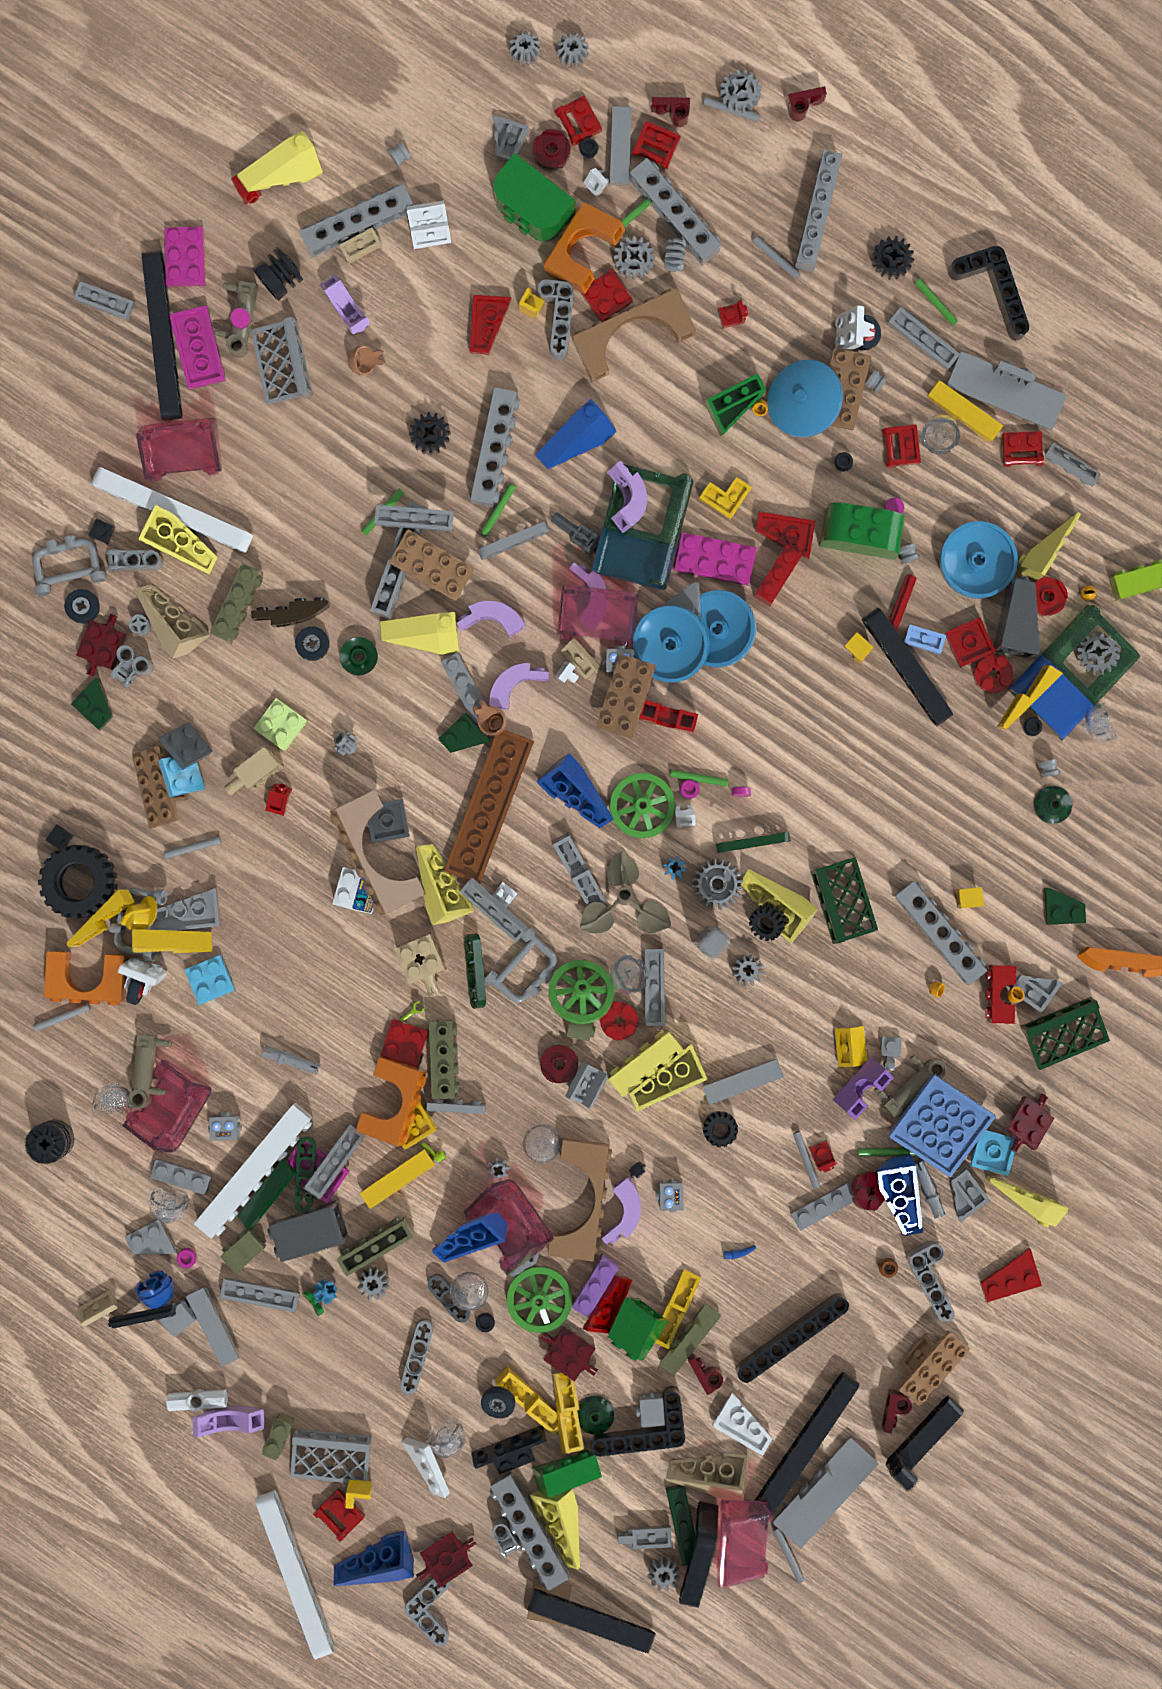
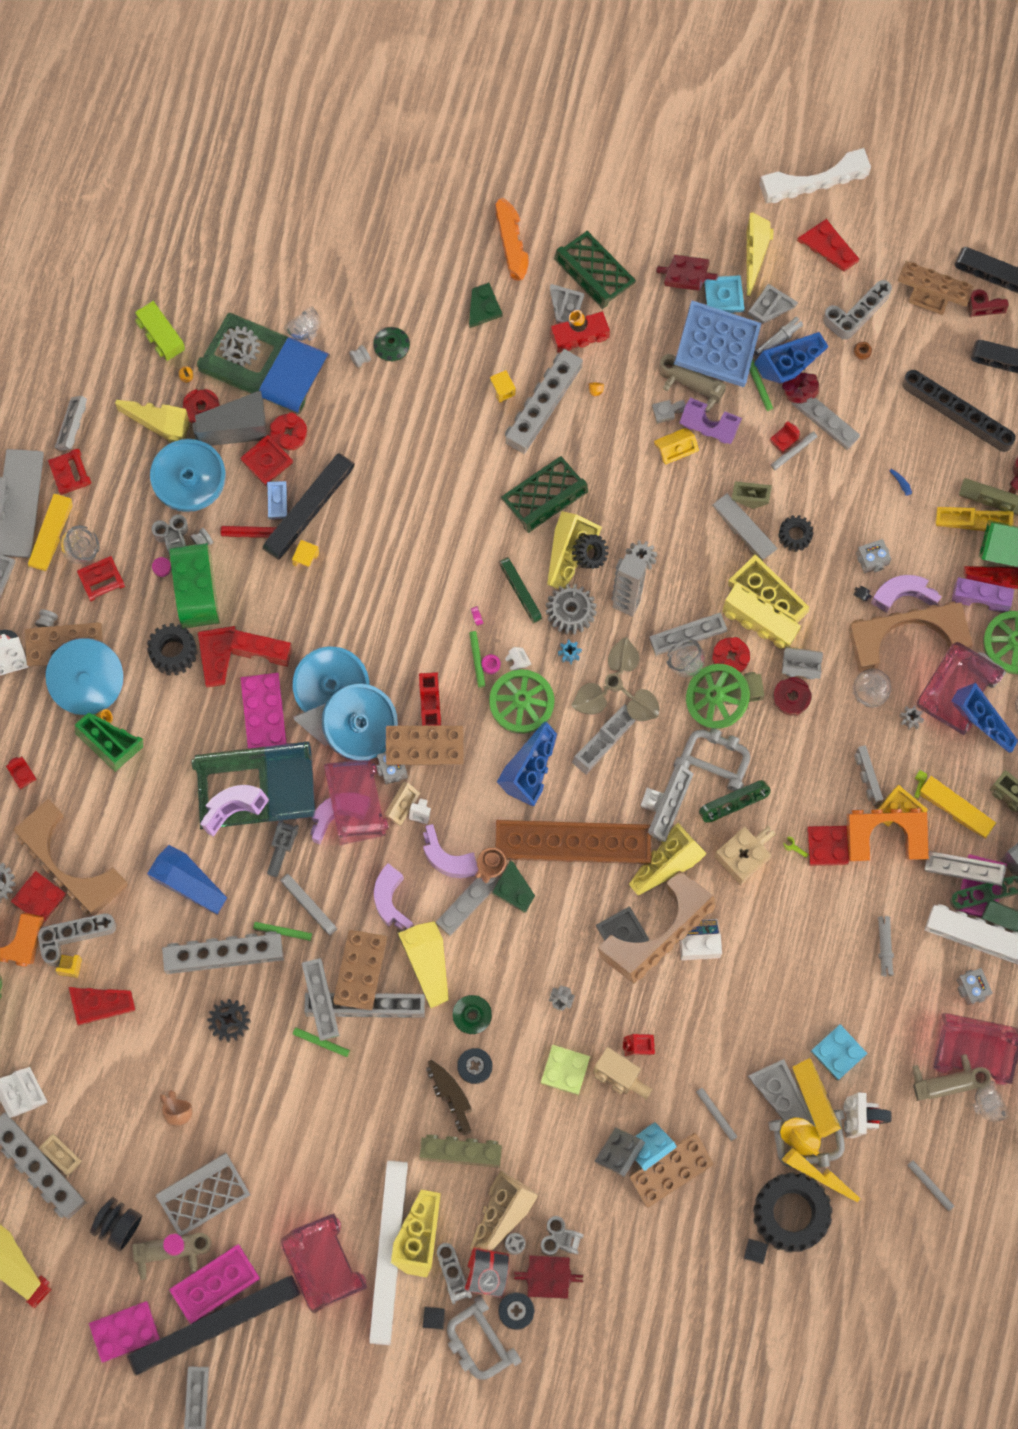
camera: 110 degrees left, 15 degrees down
(60, 985) = (886, 1144): orange arch -> none
(93, 704) = (611, 1263): dark green wing -> none
(121, 590) = (487, 1272): none -> slope
(344, 304) = (128, 1146): lavender arch -> none
(443, 1059) = (829, 803): olive brick -> none
(726, 502) = (205, 717): yellow plate -> none
(773, 1100) = (751, 494): none -> olive slope
(809, 475) = (168, 635): none -> black tyre
(843, 462) = (132, 626): black plate -> none
(919, 526) = (172, 536): none -> light grey piece
(1022, 702) = (310, 394): yellow slope -> none
(1032, 726) = (326, 383): black plate -> none
(1093, 1251) = (781, 186): none -> white arch

